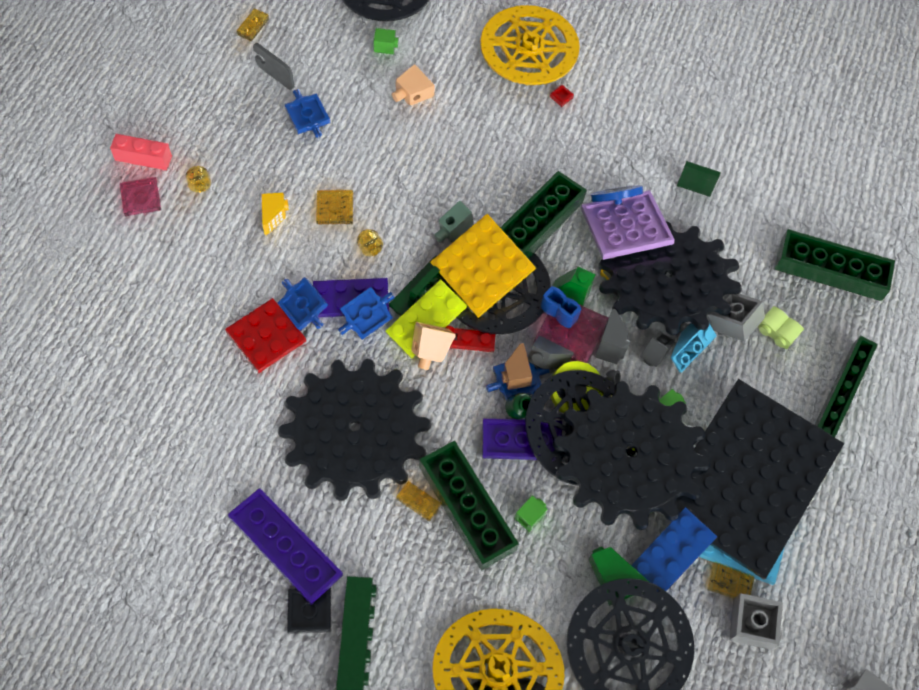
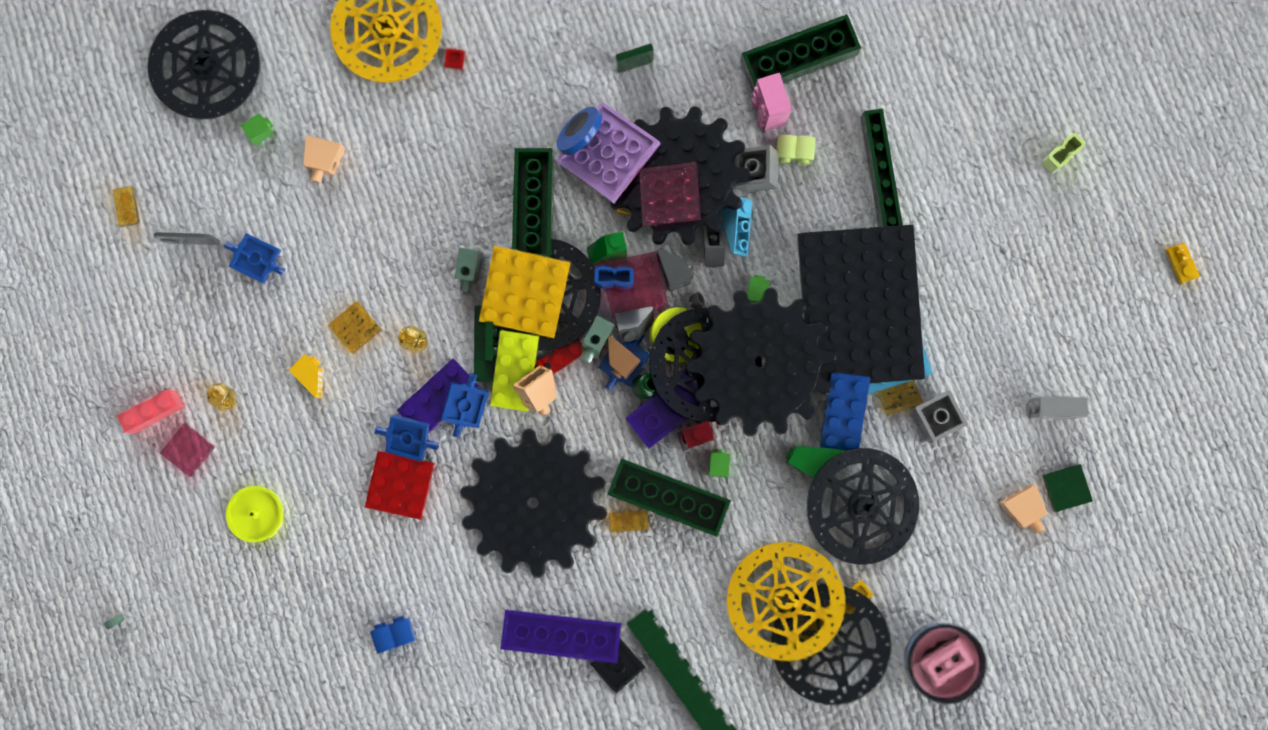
camera: 30 degrees left, 20 degrees up
(142, 273) = (254, 514): none -> neon yellow piece
(156, 437) = (392, 635): none -> blue brick
(508, 339) = (596, 339): none -> sand green torso
(531, 475) = (697, 435): none -> dark red torso
(653, 280) = (670, 194): none -> clear pink plate
(785, 276) = (771, 102): none -> bright pink brick

